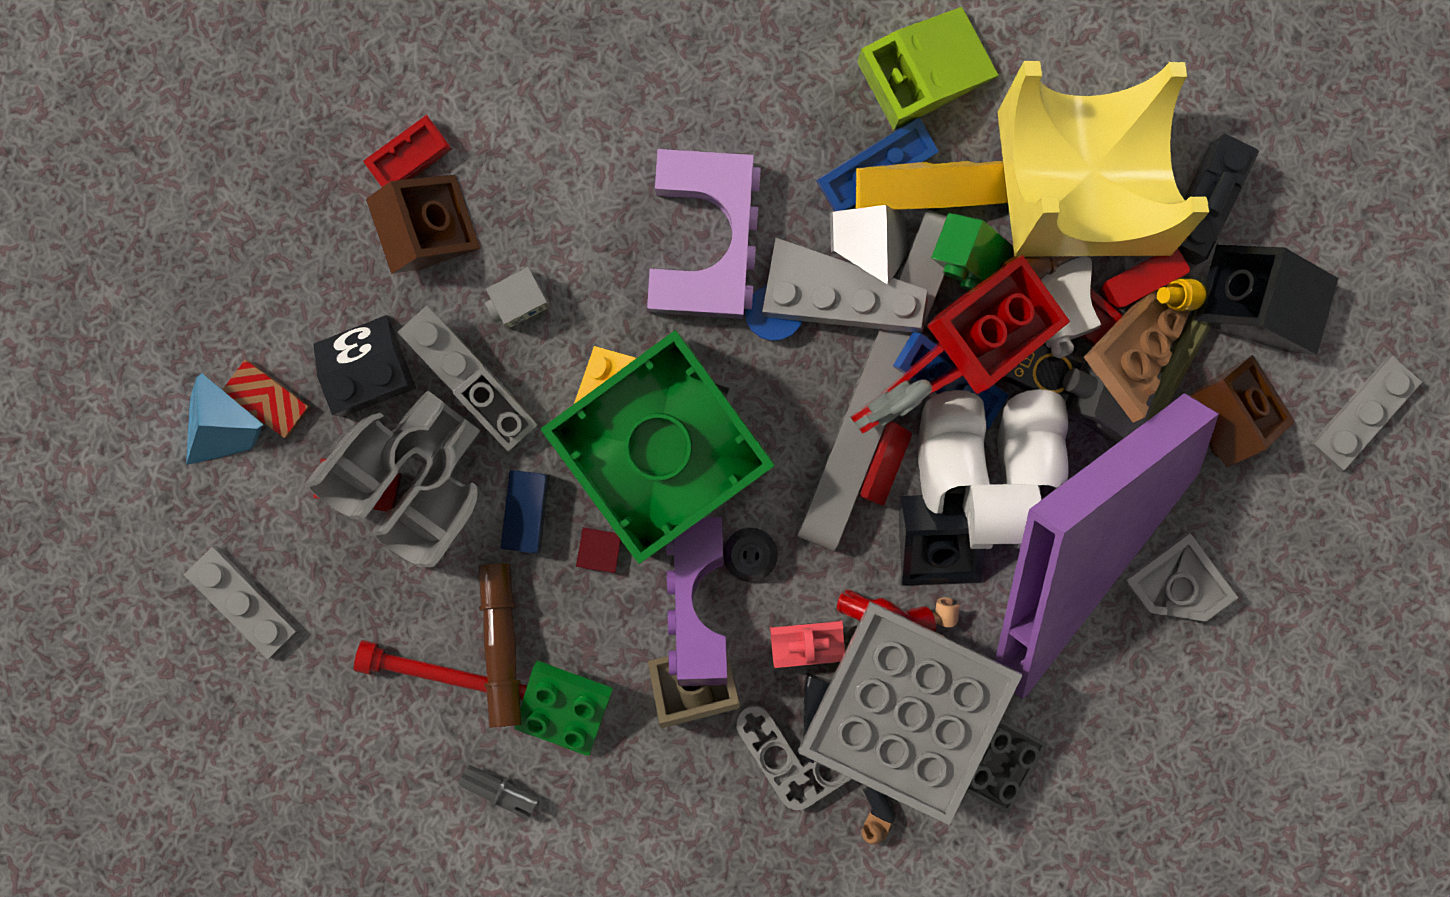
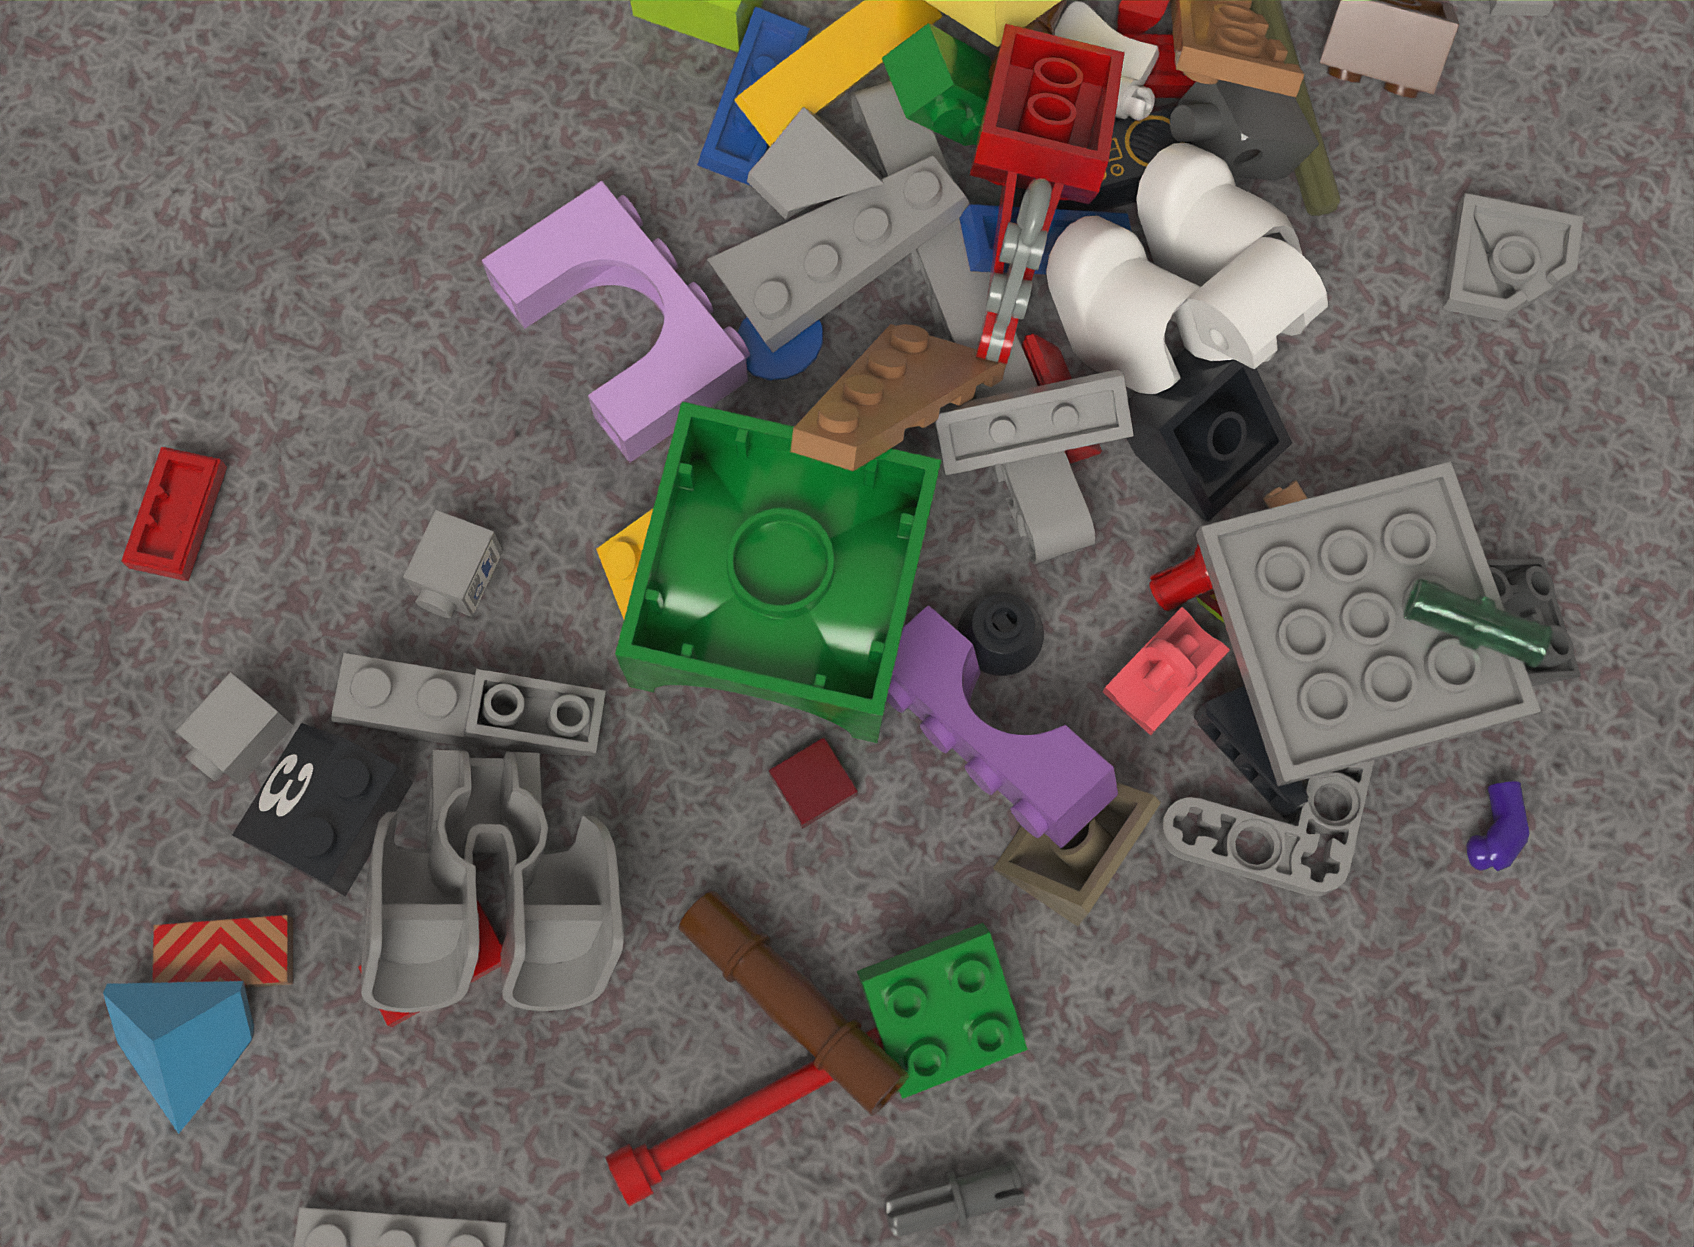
camera: 40 degrees left, 15 degrees down
(350, 295) = (232, 731): none -> light grey brick
(422, 222) = (255, 574): reddish brown slope -> none
(525, 511) = (679, 813): dark blue slope -> none
(785, 405) = (889, 389): none -> medium nougat wing
(848, 473) = (1034, 422): none -> light grey plate
(880, 817) = (1442, 807): arm -> none
(898, 854) = (1507, 833): none -> dark purple arm
(954, 763) = (1517, 638): none -> clear green pin
(1093, 529) = (1368, 254): medium lavender slope -> none

